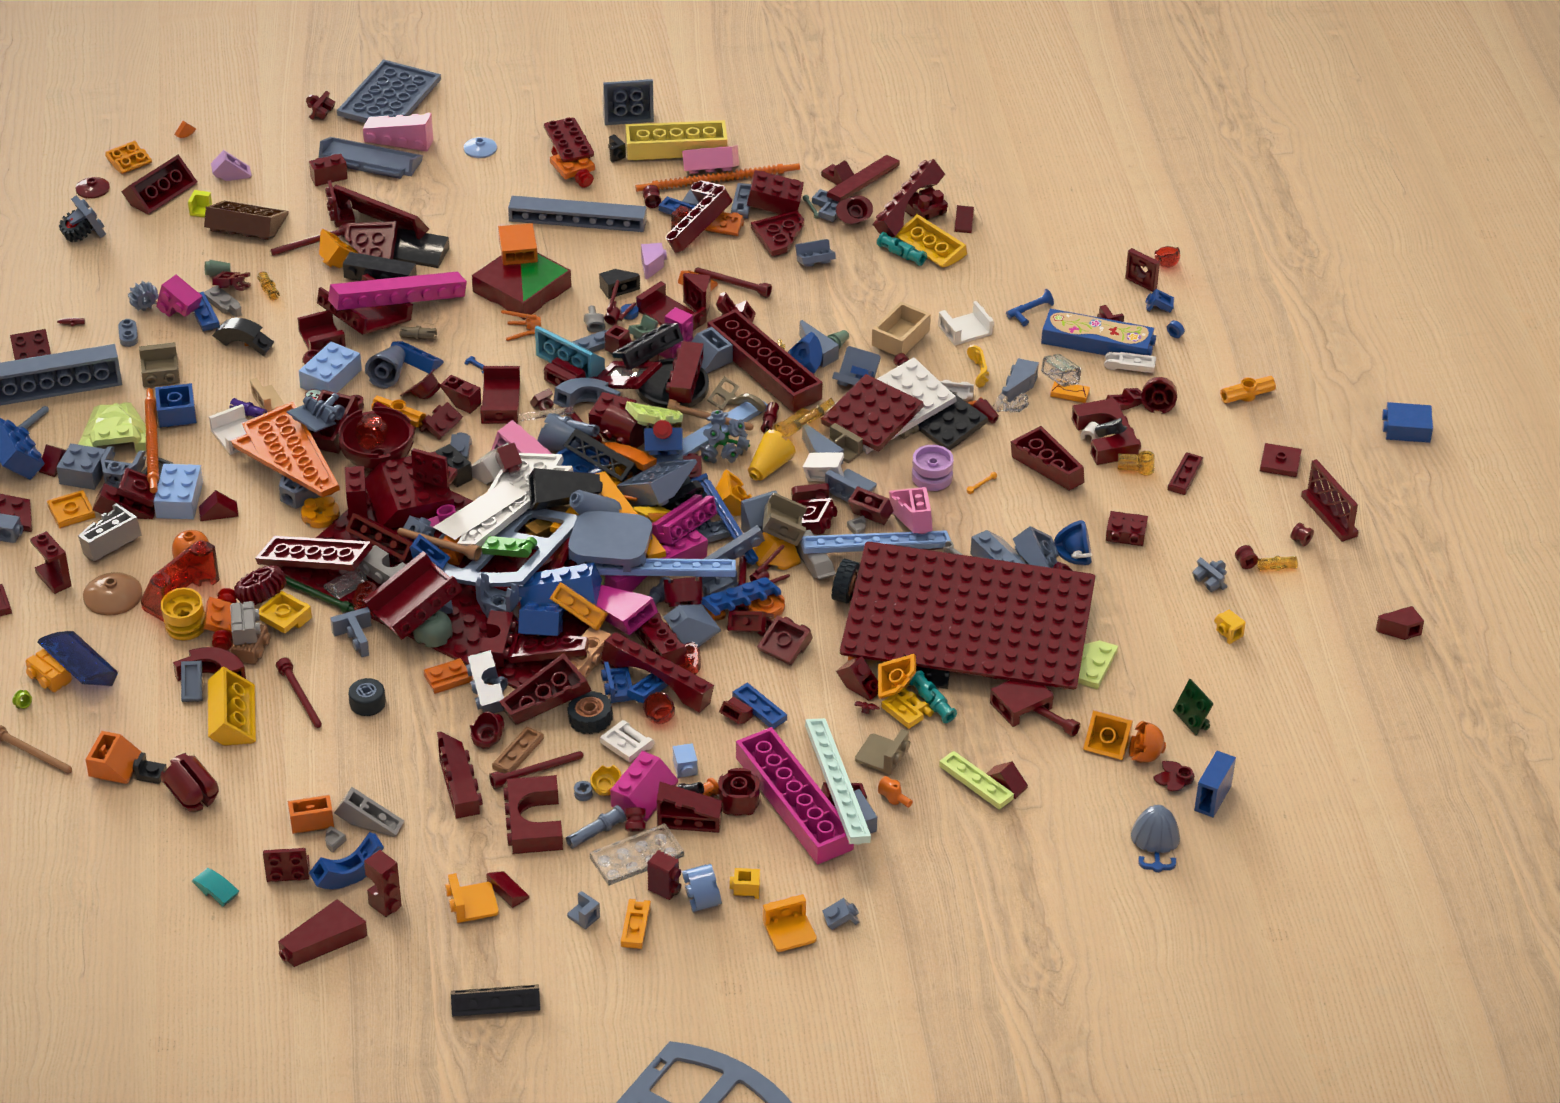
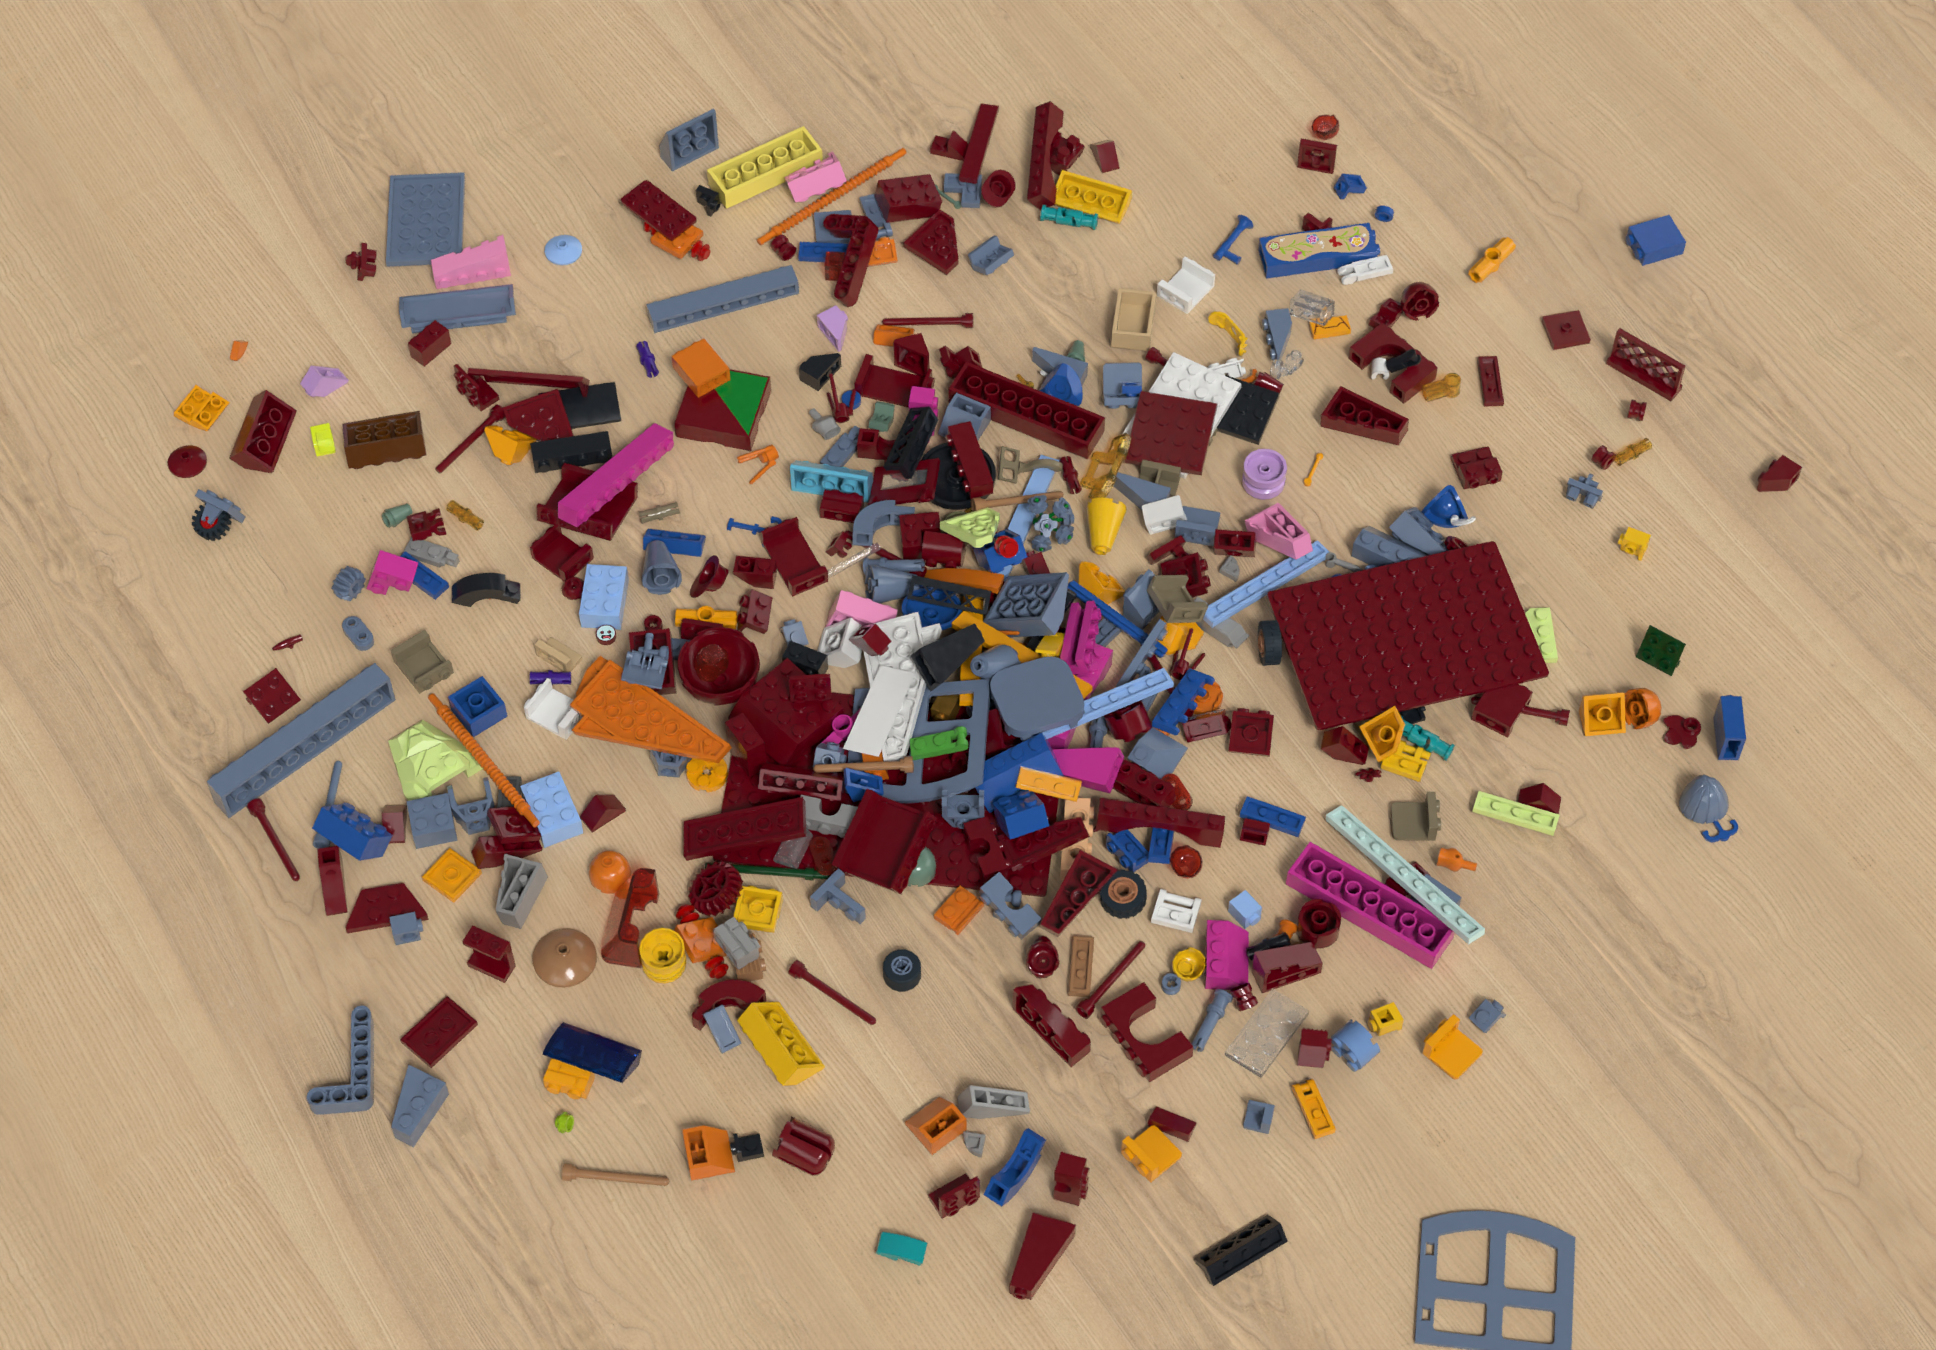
camera: 25 degrees left, 15 degrees up
(488, 234) = (647, 359): none -> dark purple pin

